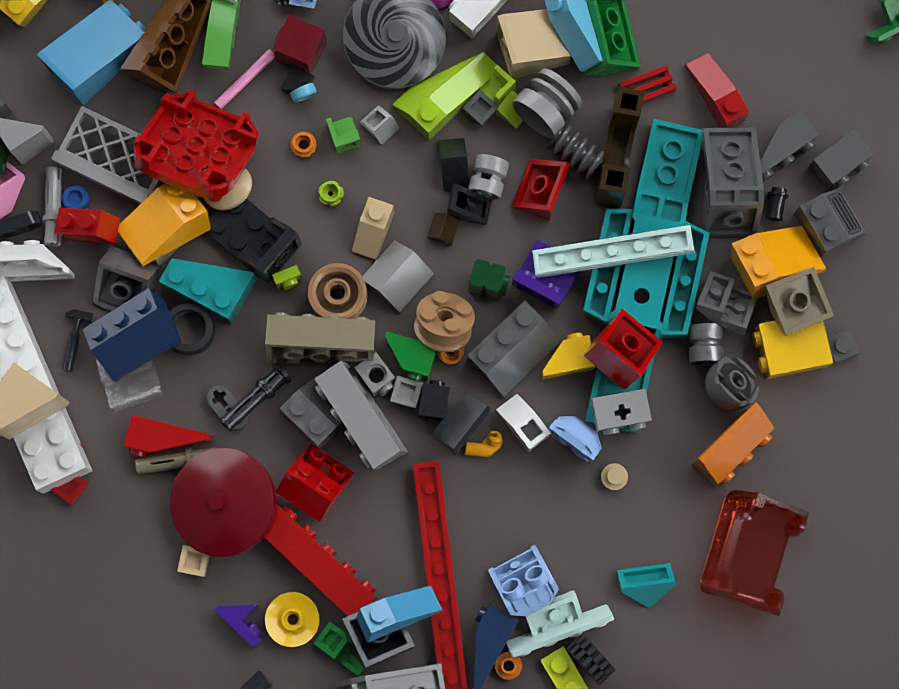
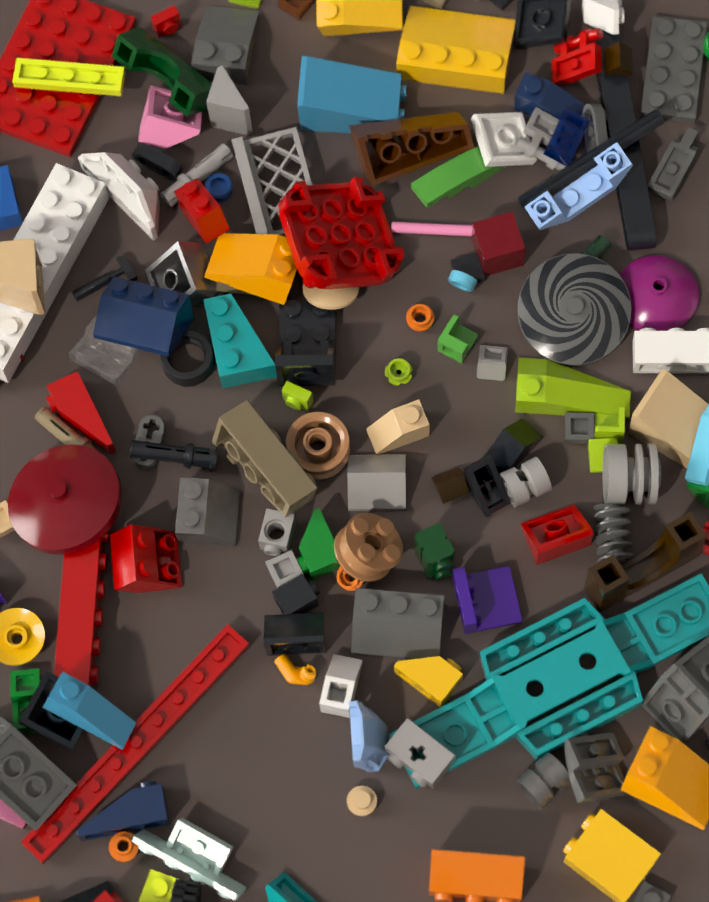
camera: 55 degrees right, 10 degrees down
(360, 415) = (230, 547): light grey slope -> none
(524, 583) = (203, 799): light blue slope -> none
(613, 251) = (552, 633): light aqua tile -> none
(623, 349) = (474, 710): red slope -> none
(731, 384) = (527, 829): dark grey cylinder -> none
(798, 301) = (650, 824): dark tan slope -> none

